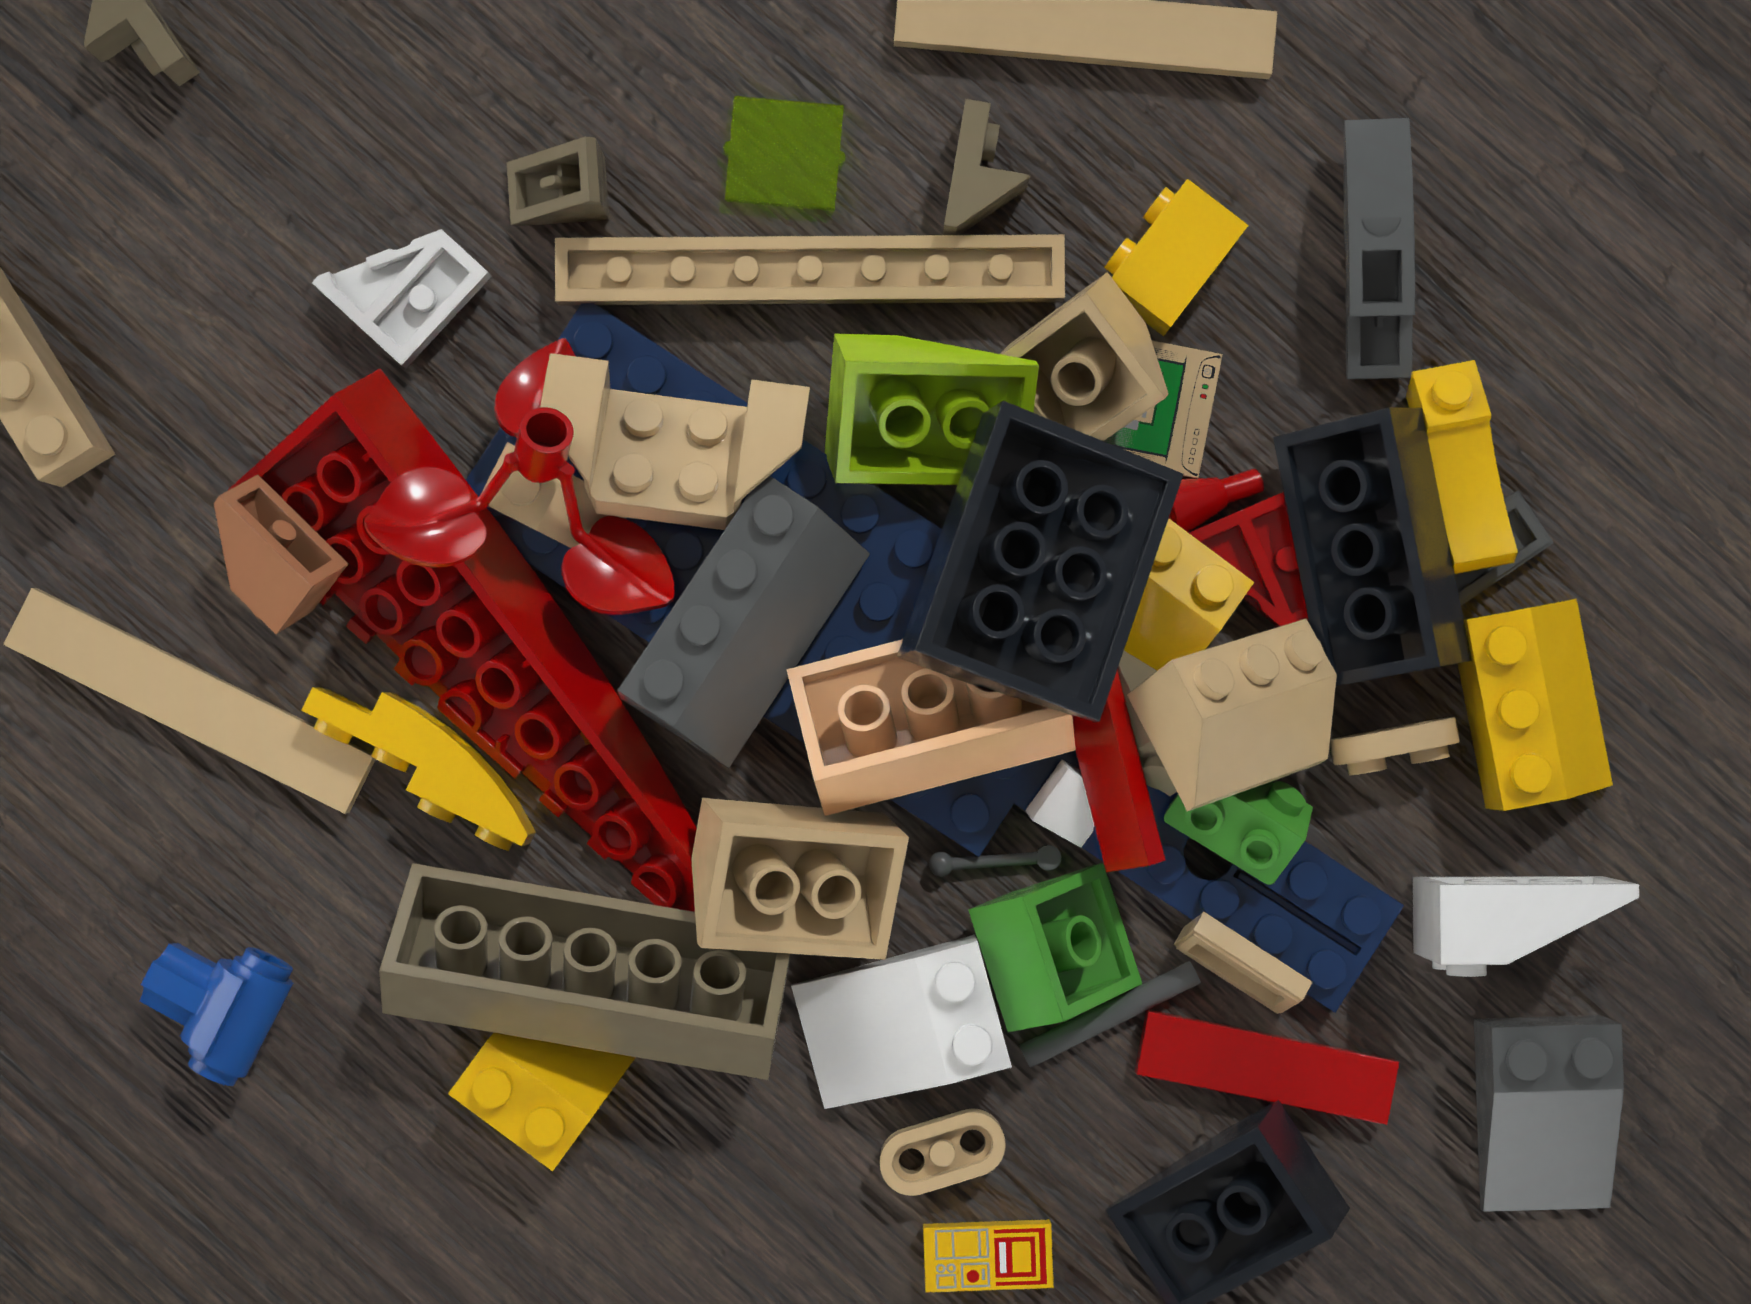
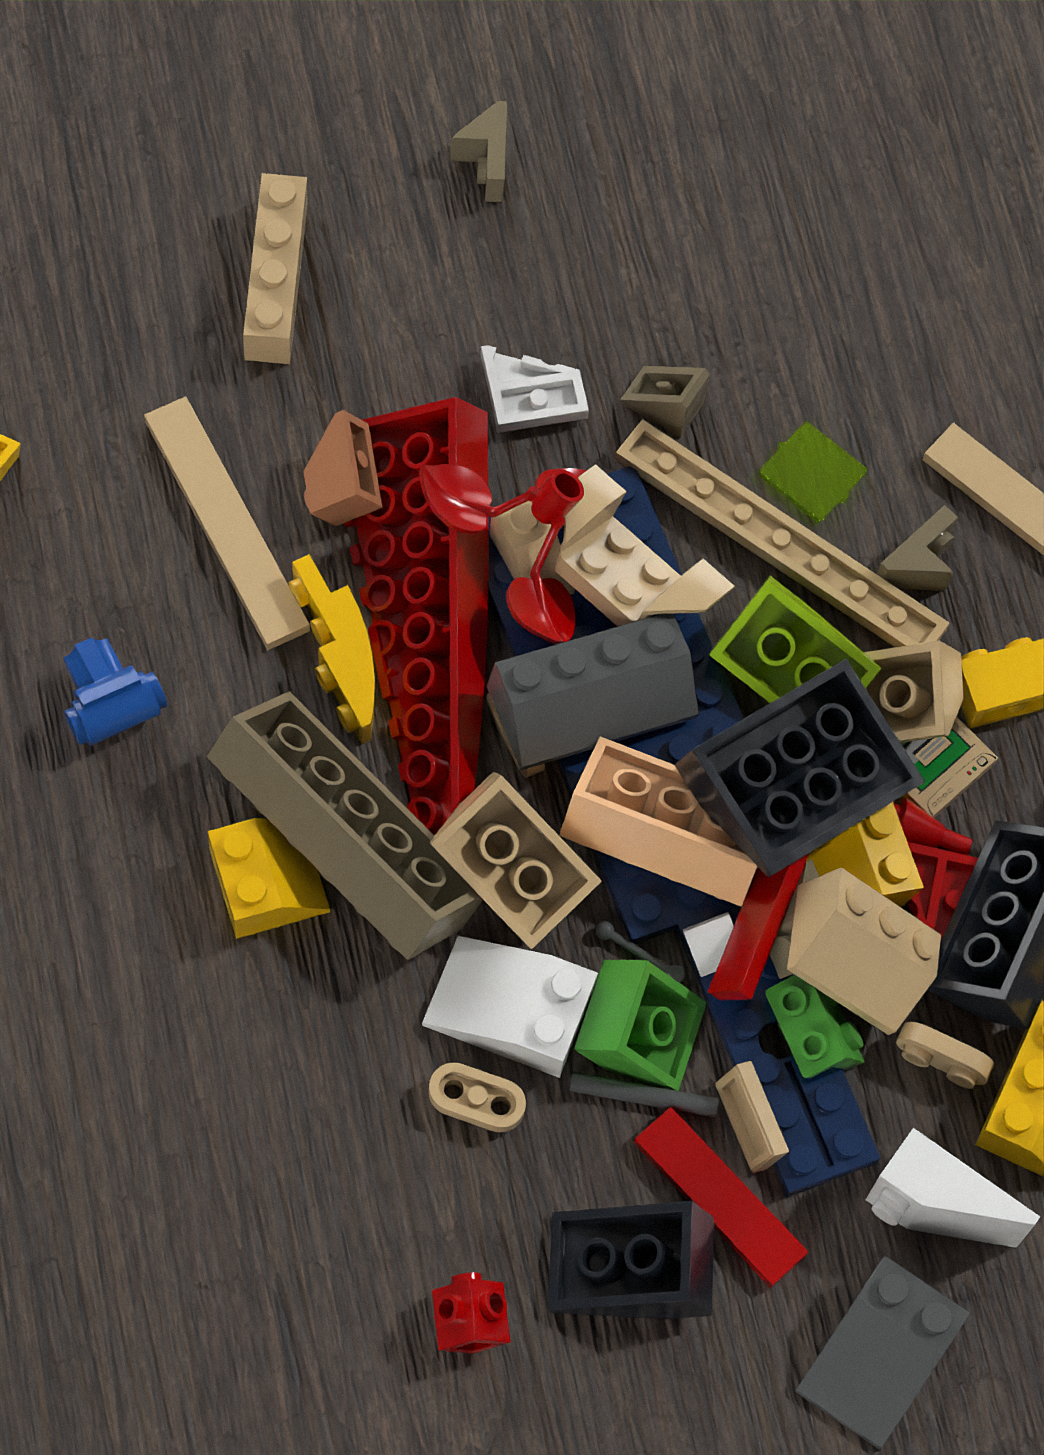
camera: 30 degrees right, 20 degrees down
(988, 1255) = (457, 1184): yellow tile -> none

